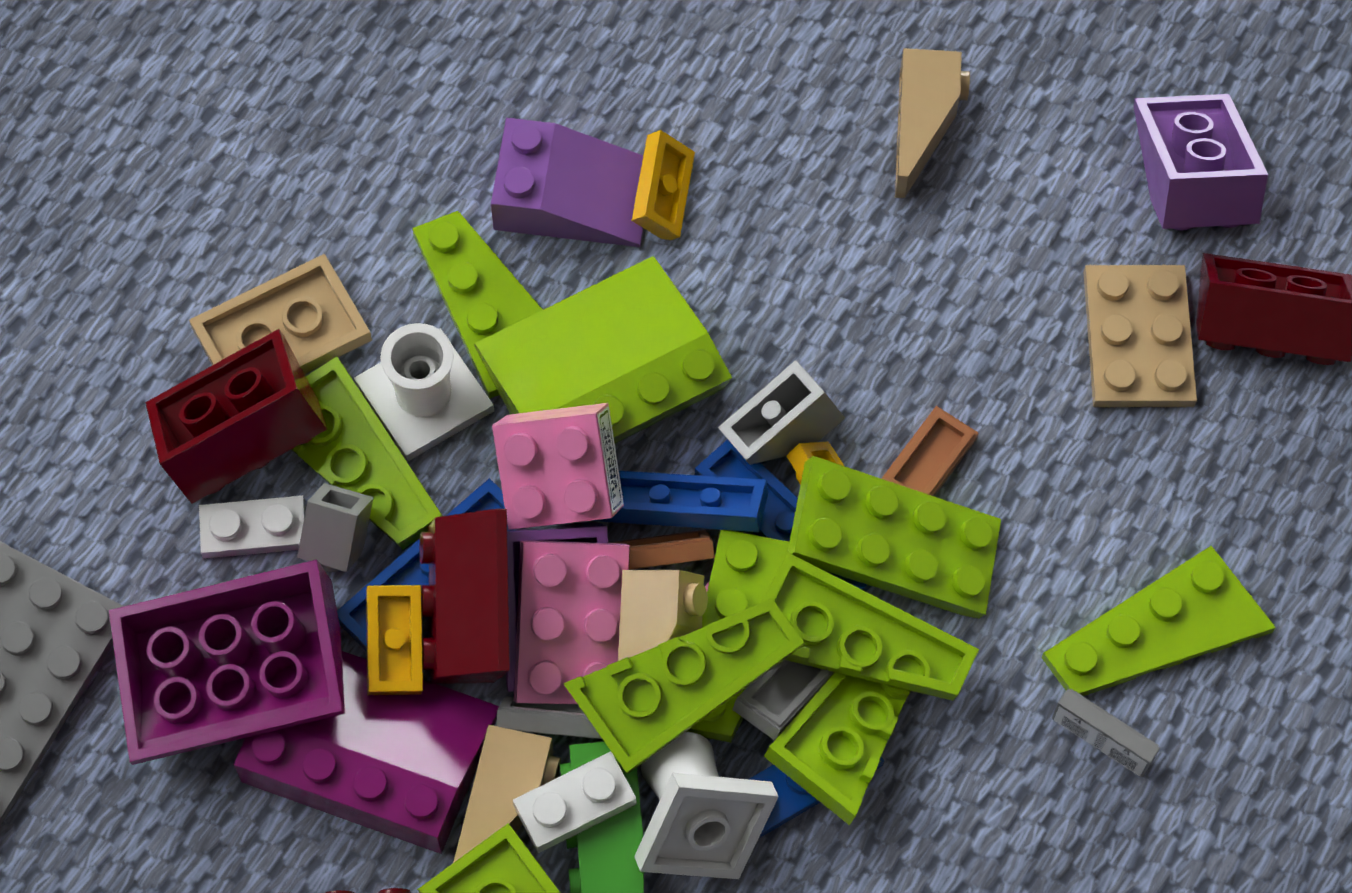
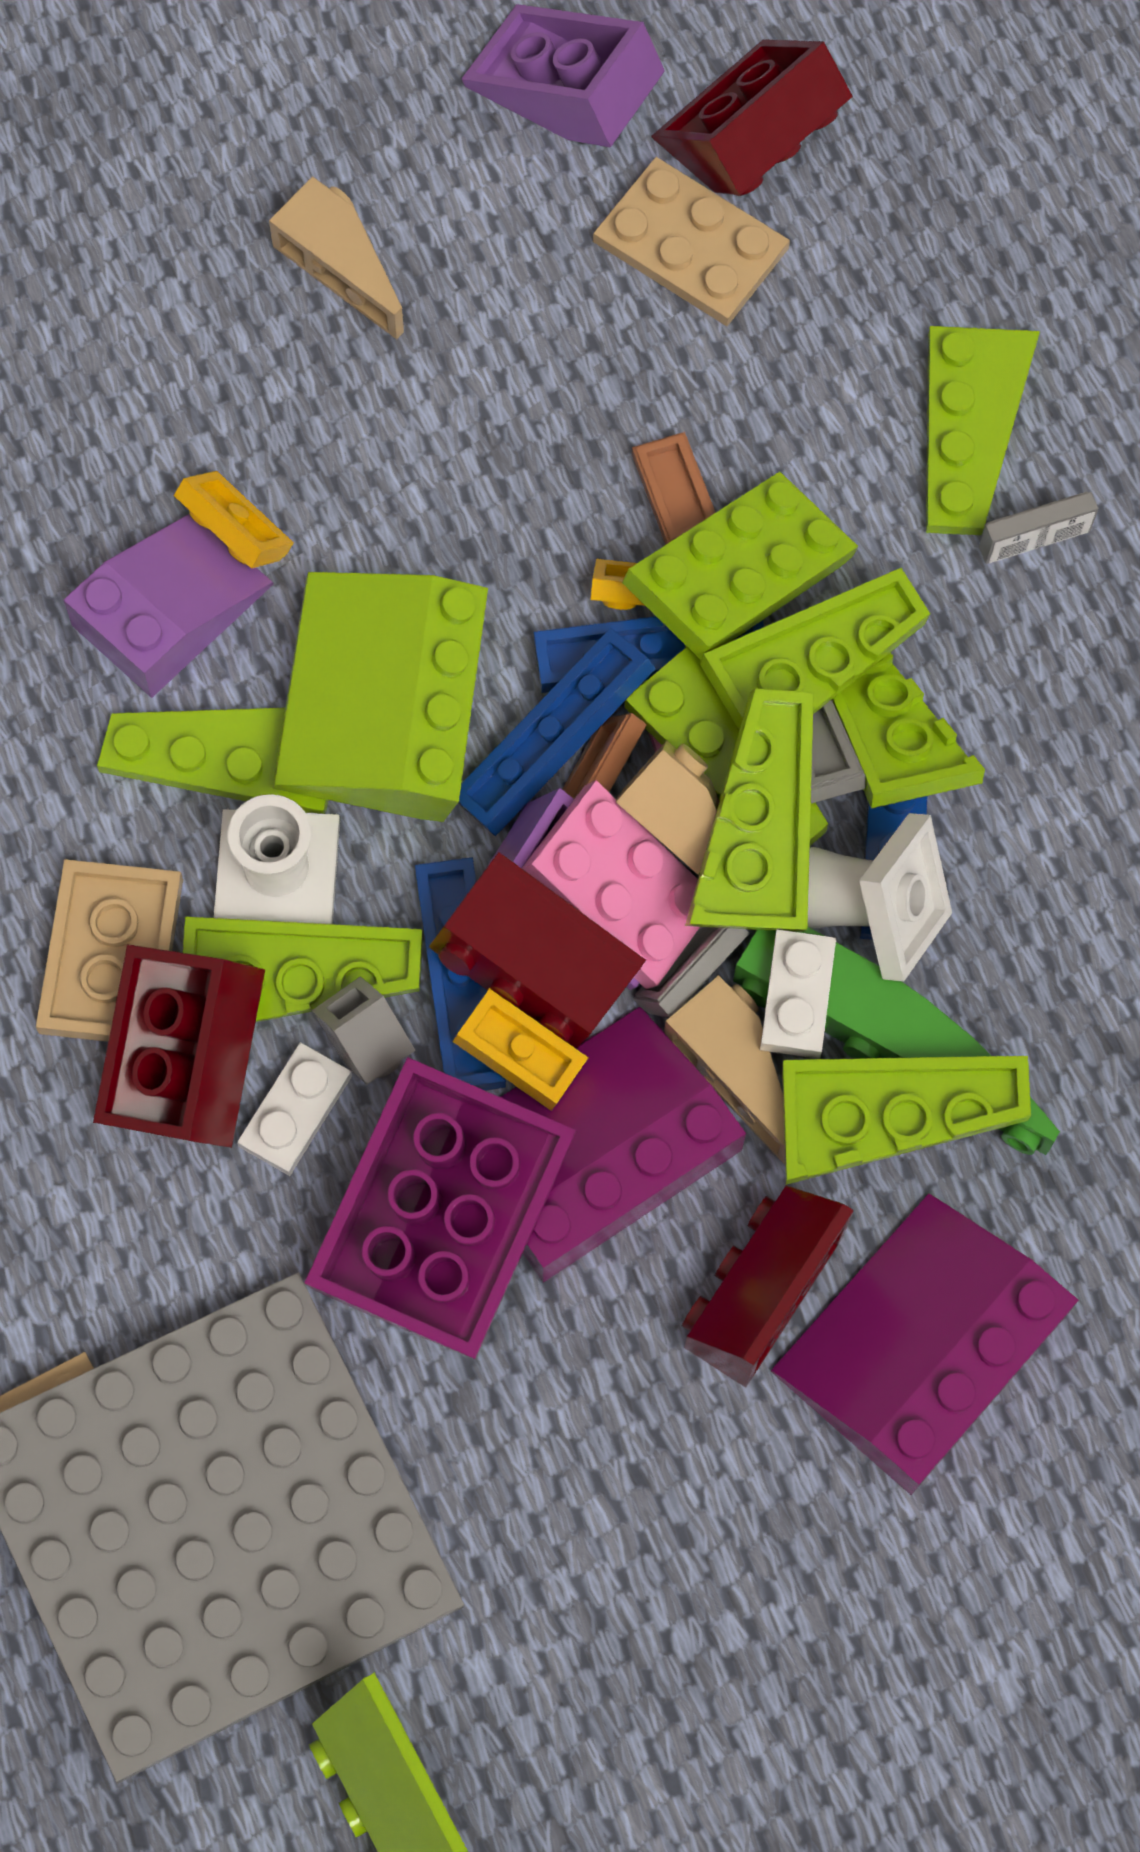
camera: 55 degrees left, 5 degrees up
(558, 466) = (474, 785): bright pink brick -> none
(781, 416) = (553, 576): light grey slope -> none

